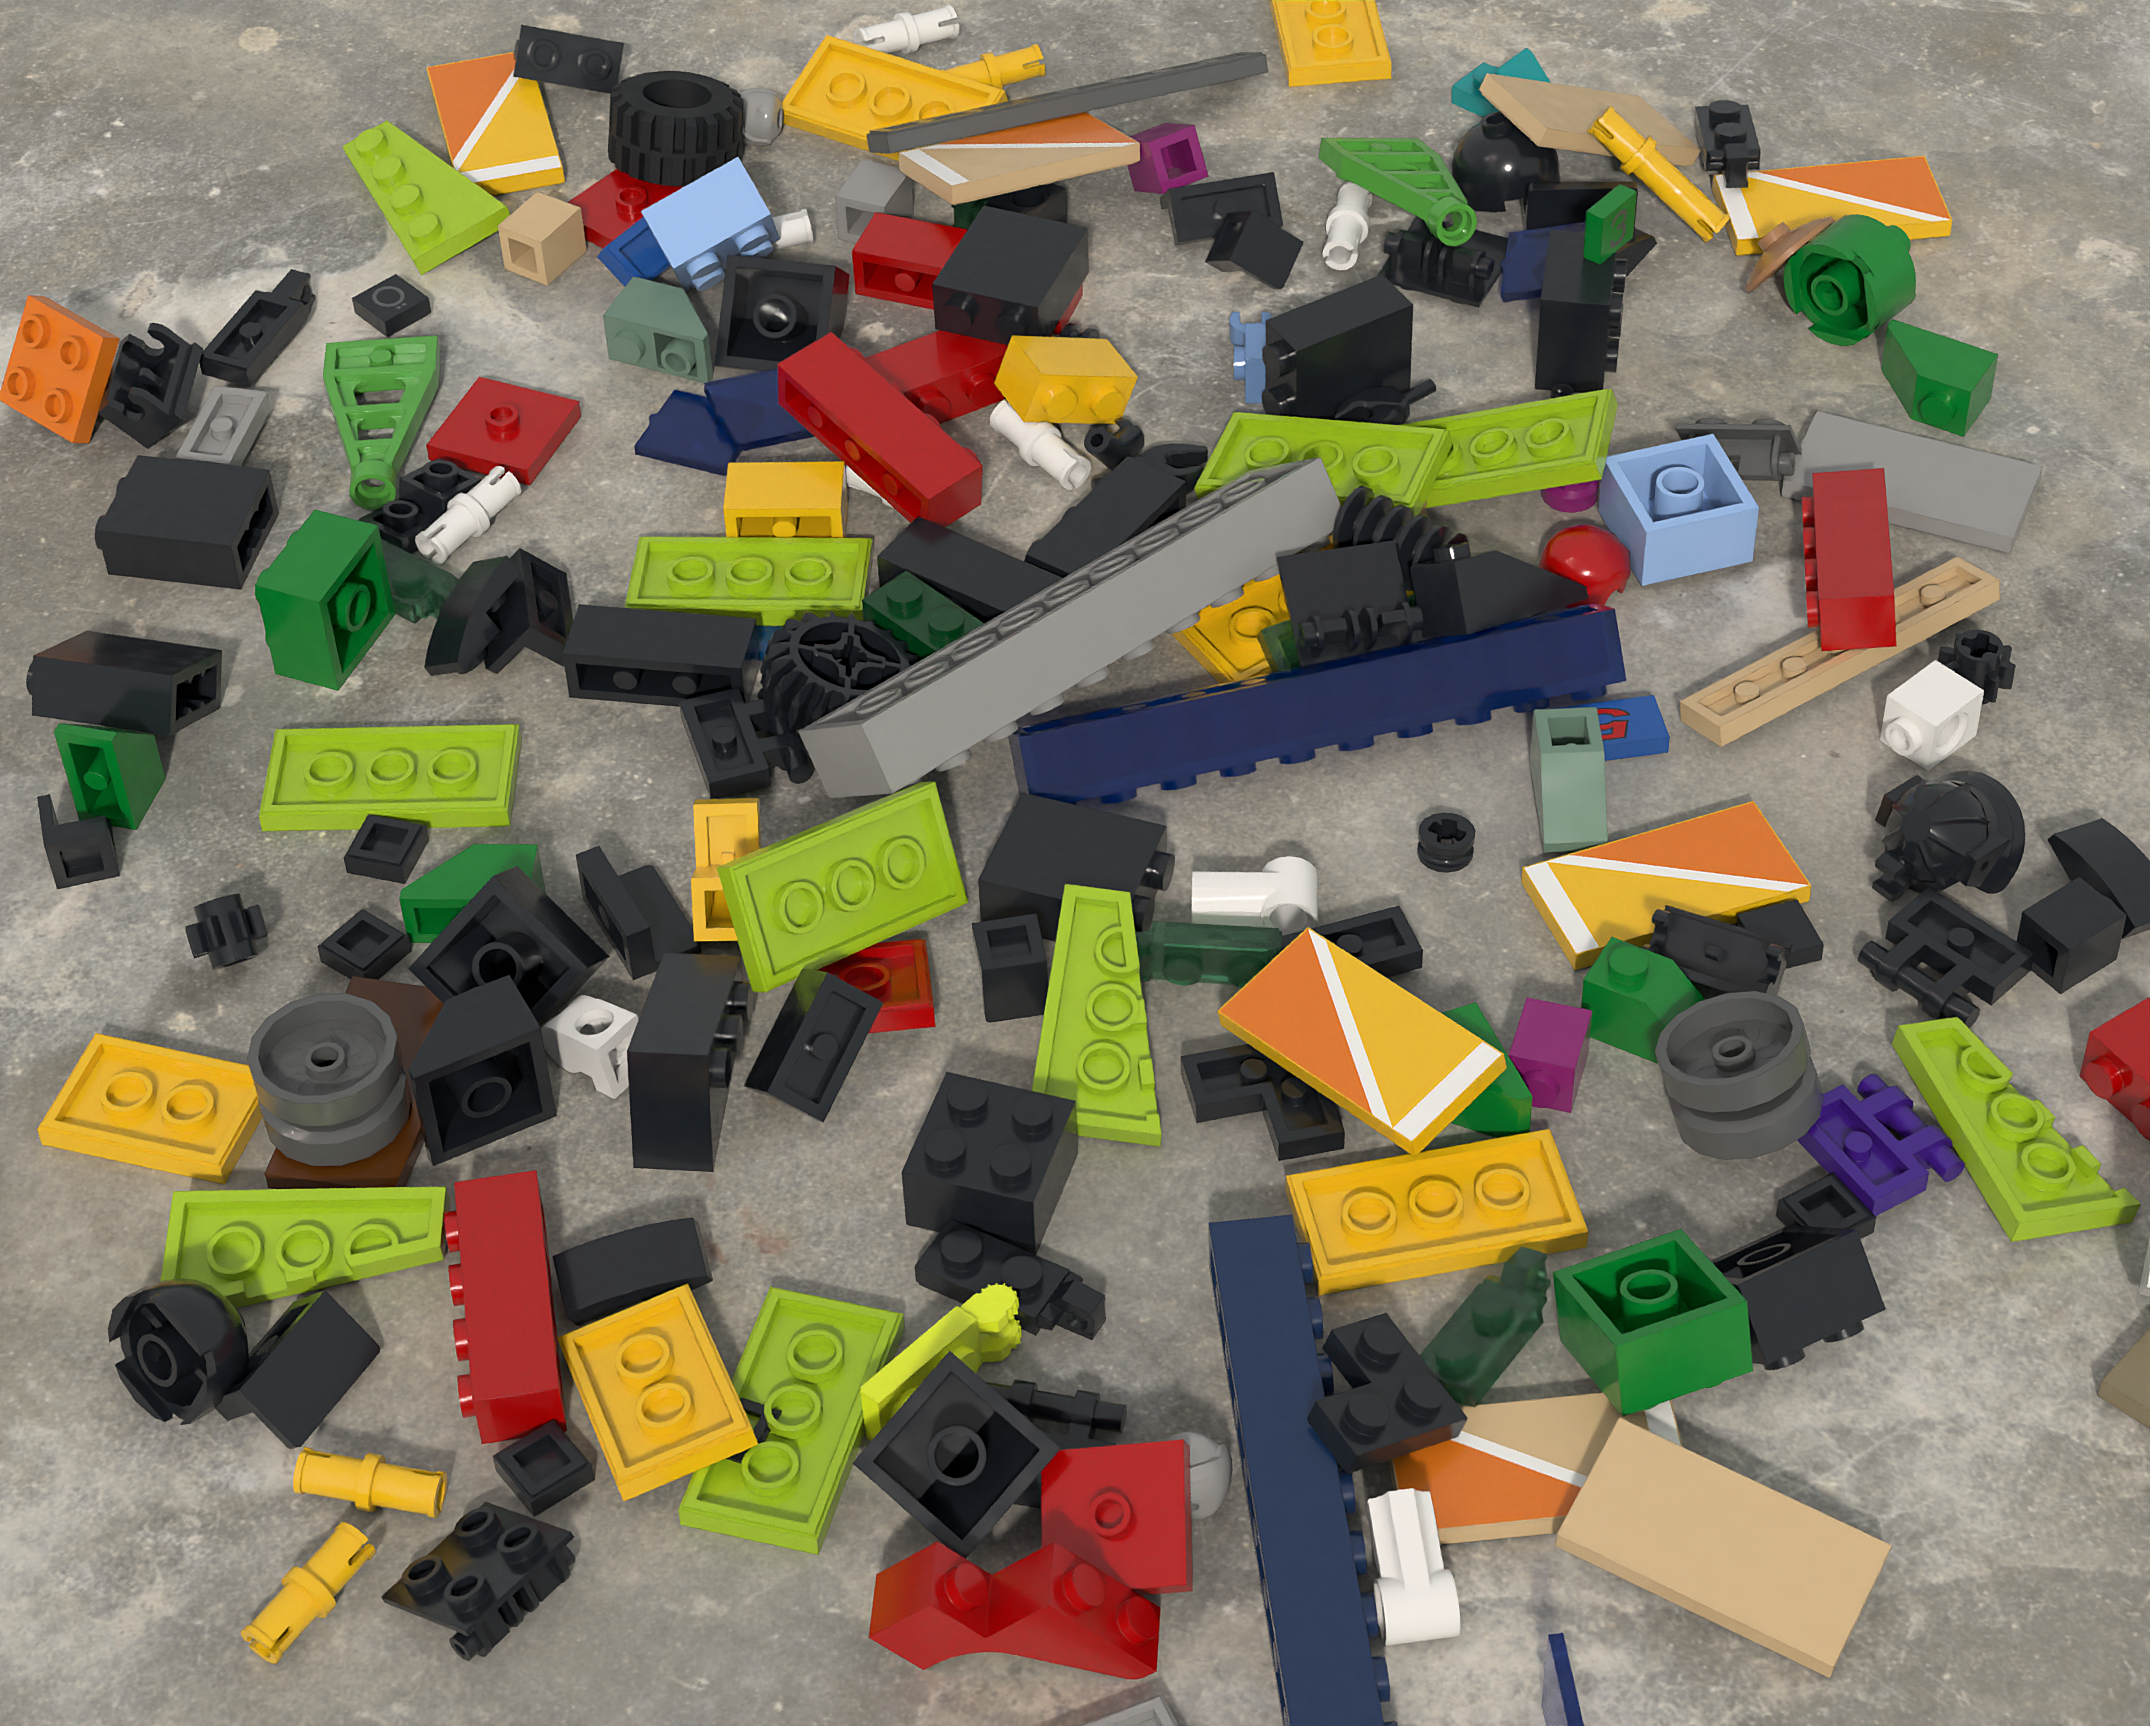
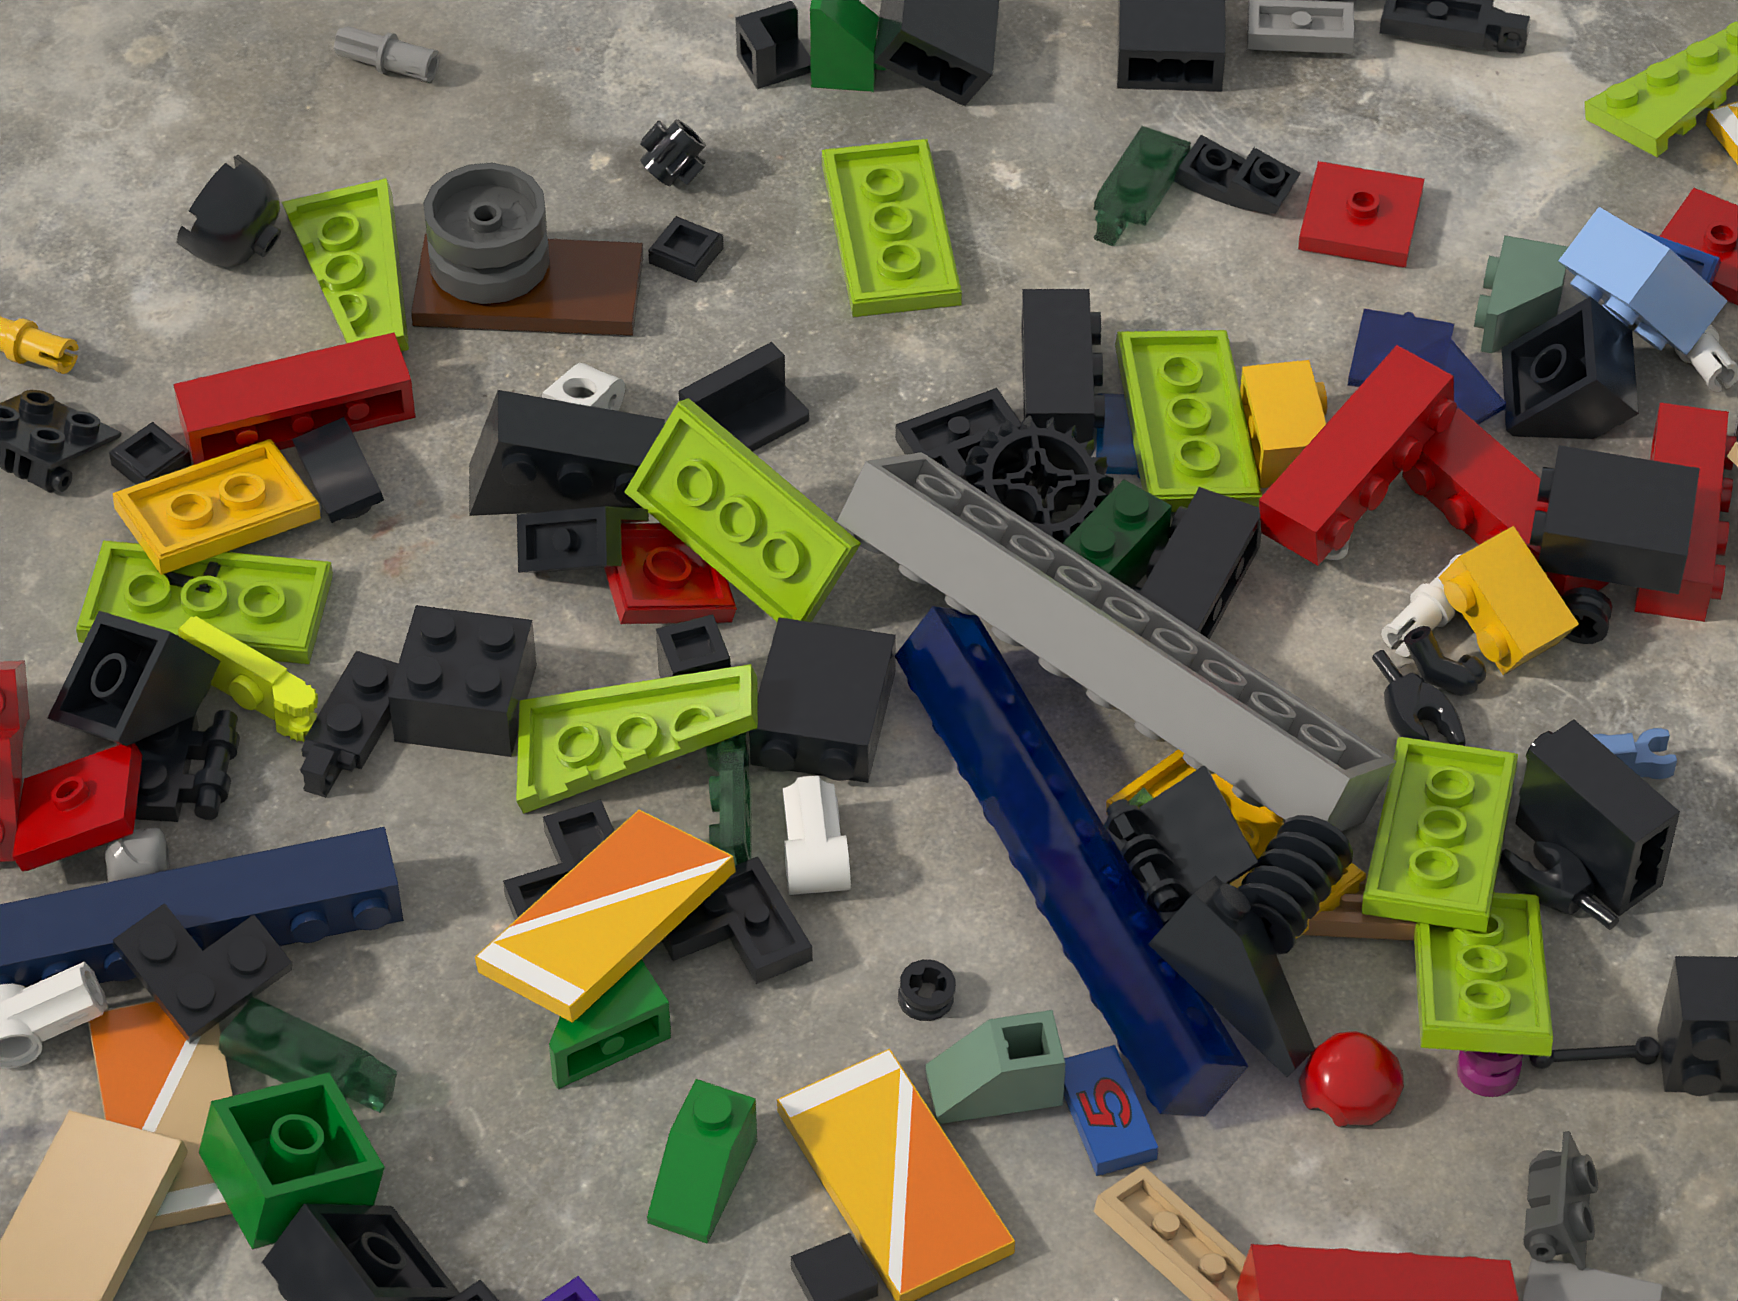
camera: 80 degrees right, 5 degrees up
(155, 1109) = (506, 134): yellow tile -> none
(301, 1369) = (228, 295): black panel -> none
(325, 599) = (1061, 122): green brick -> none
(370, 1482) = (123, 355): yellow pin -> none
(379, 366) = (1415, 96): bright green plate -> none
(386, 849) = (803, 240): black tile -> none
(391, 305) = (1521, 103): black tile -> none
(443, 892) = (742, 303): green slope -> none
(464, 623) = (1065, 229): black slope -> none
(468, 515) = (1228, 207): white pin -> none
(480, 1072) = (515, 323): black slope -> none
(513, 933) = (648, 324): black slope -> none
(533, 615) = (1112, 271): black panel -> none
(542, 238) = (1641, 183): tan brick -> none
(722, 833) = (795, 442): yellow brick -> none
(1110, 515) = (1320, 669): black brick -> none
(1435, 1211) = (454, 1026): yellow tile -> none
(1551, 1051) = (634, 1080): magenta brick -> none
(1678, 509) = (1431, 1142): light blue brick -> none
(1719, 952) = (771, 1205): black hinge -> none
(1739, 1075) = (594, 1217): dark grey wheel -> none

